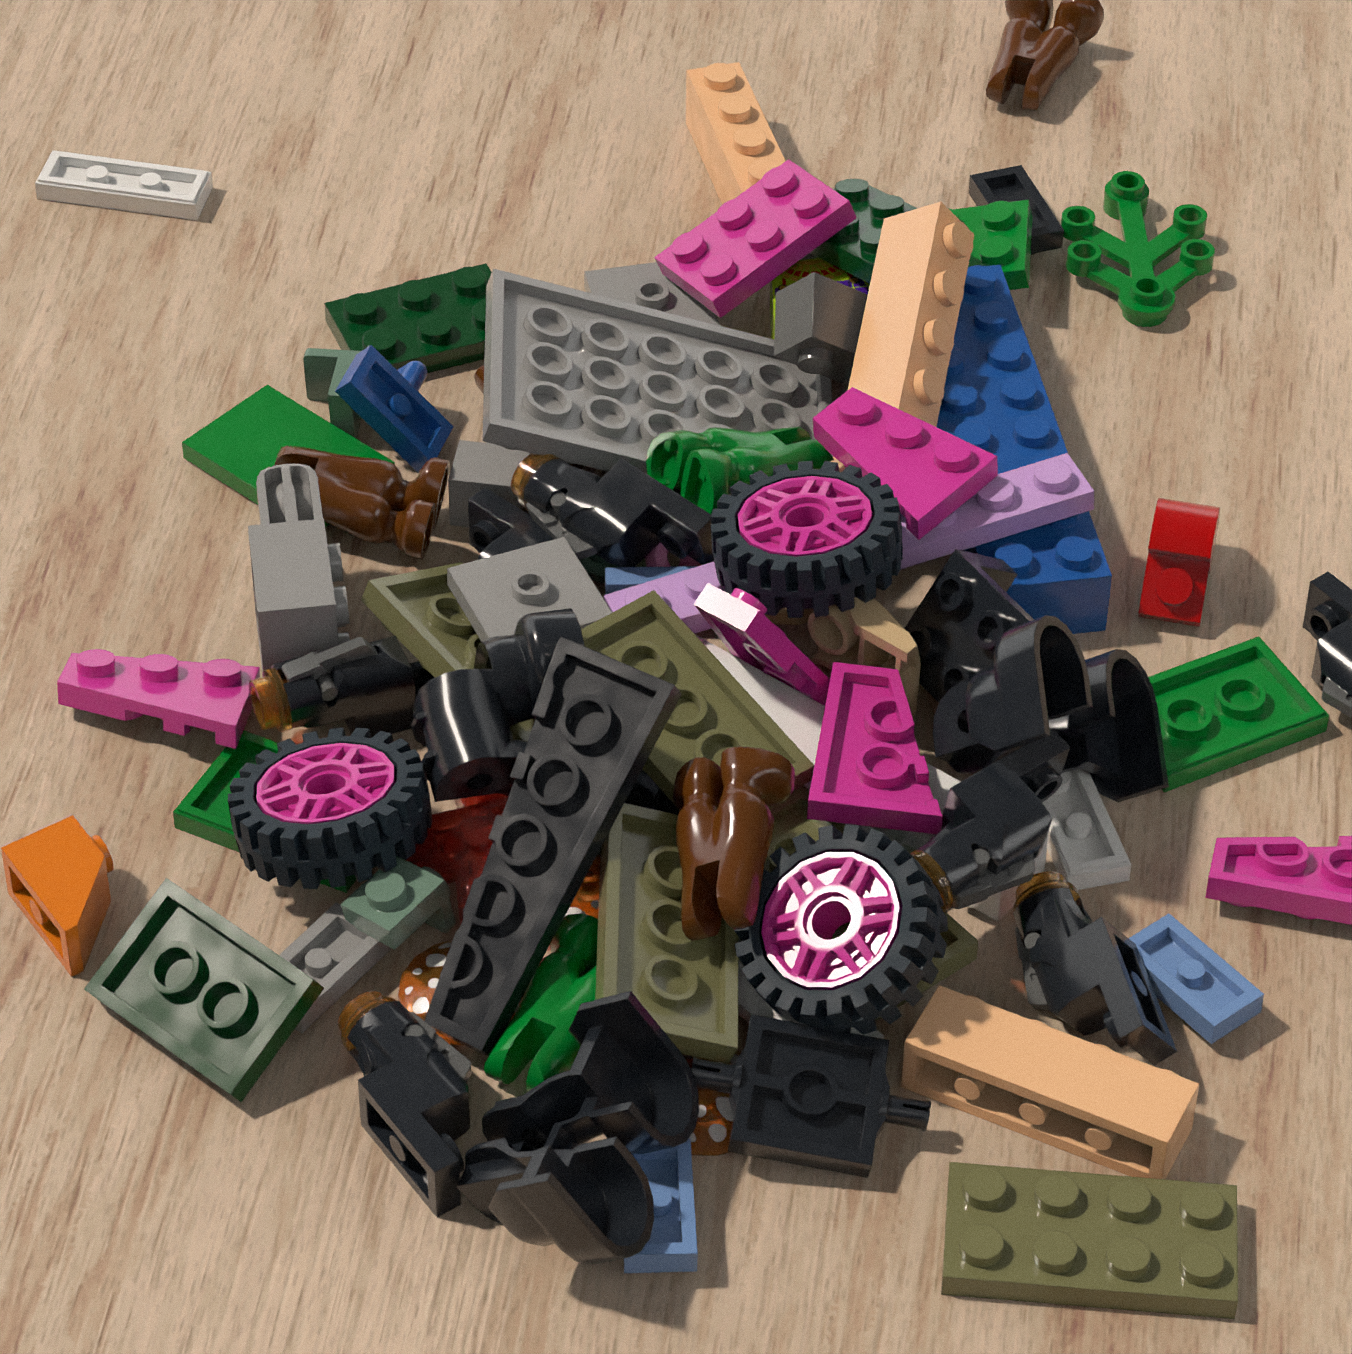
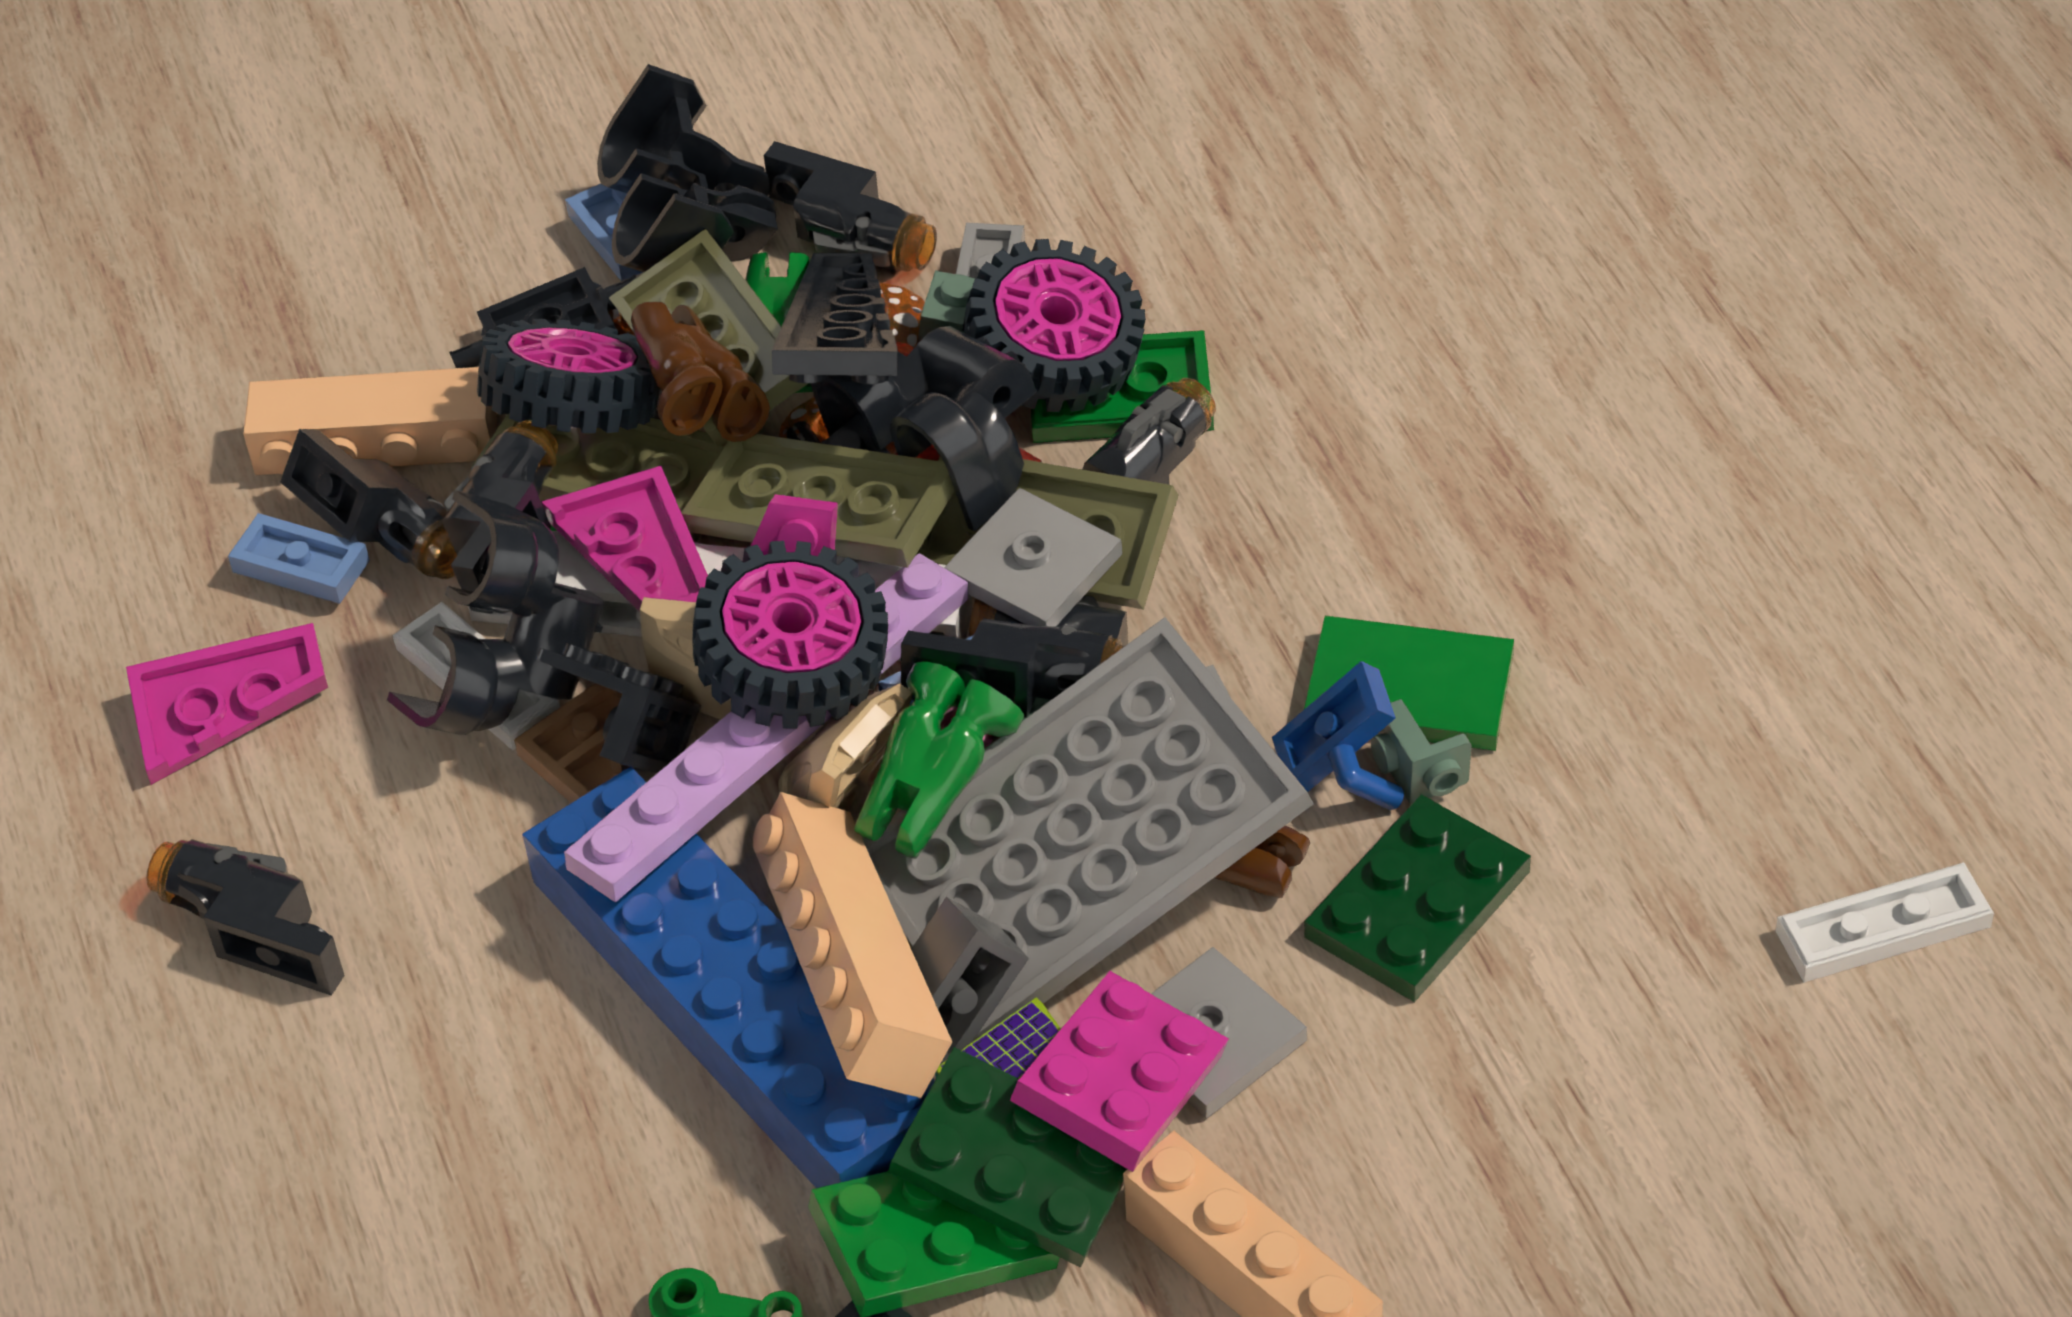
camera: 155 degrees right, 5 degrees up
(61, 887) = (1226, 228): orange slope -> none
(160, 686) = (1299, 411): dark pink wing -> none
(204, 989) = (1047, 199): plate -> none
(294, 568) = (1254, 501): light grey brick -> none
(372, 498) = (1289, 635): reddish brown piece -> none
(921, 463) = (765, 785): dark pink wing -> none
(1091, 1240) = (326, 334): olive plate -> none
(1179, 561) = (482, 943): red brick -> none
(1231, 711) = (389, 826): green tile -> none

